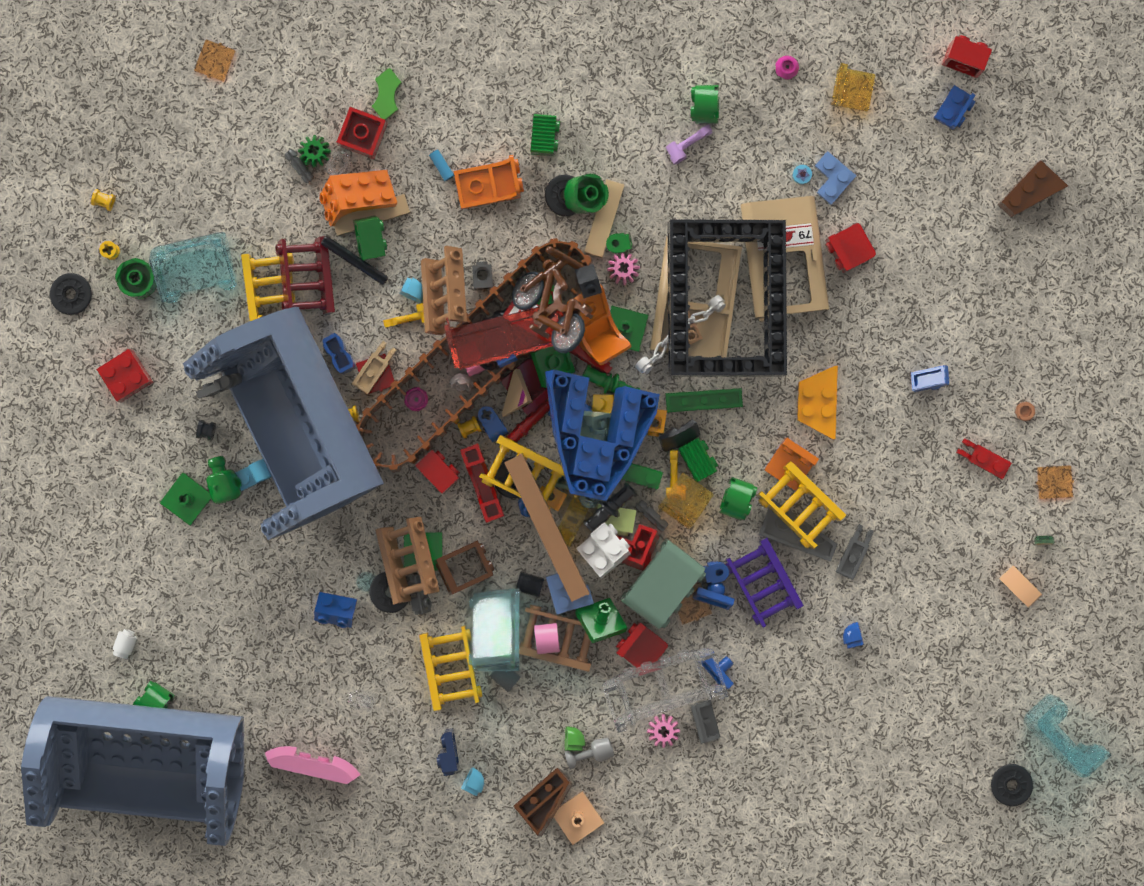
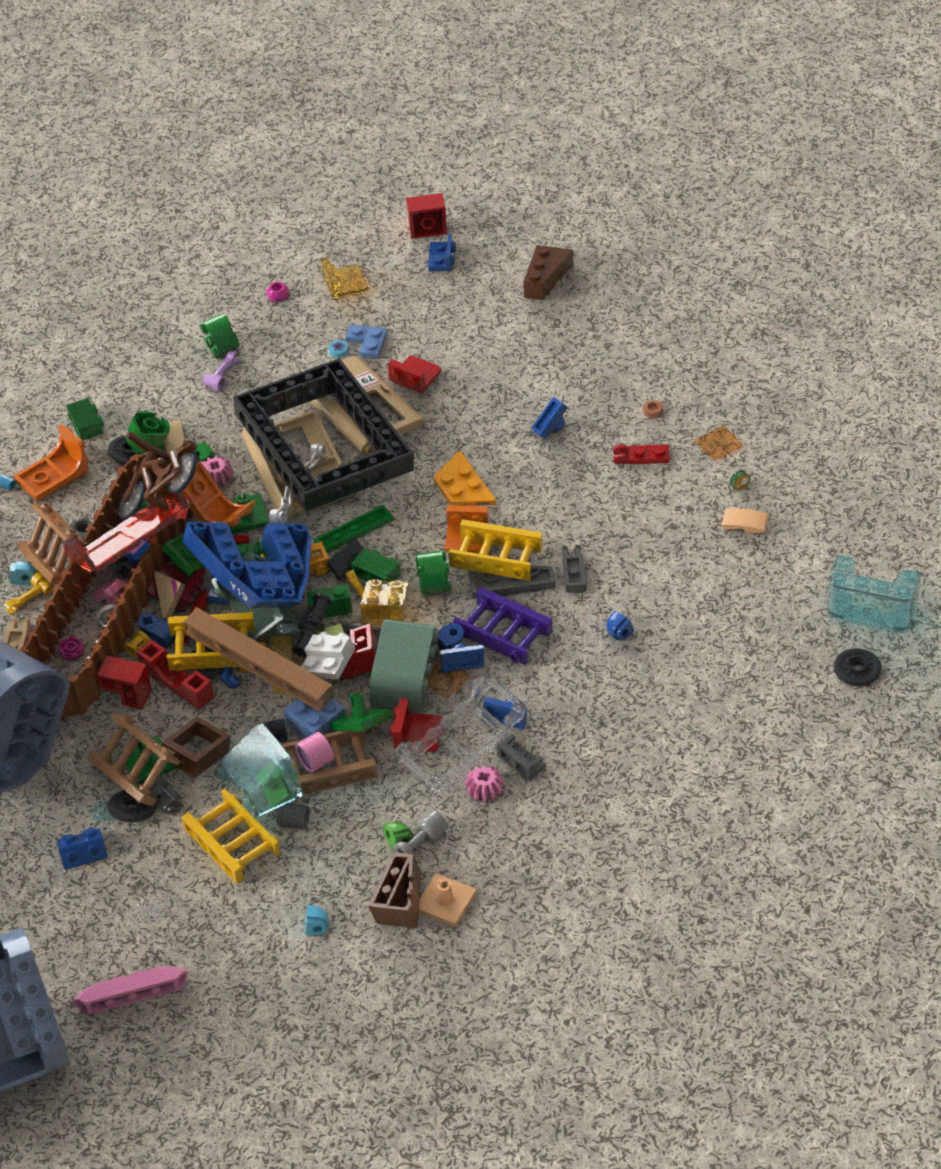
camera: 20 degrees left, 40 degrees down
(448, 757) = (272, 898): dark blue plate -> none

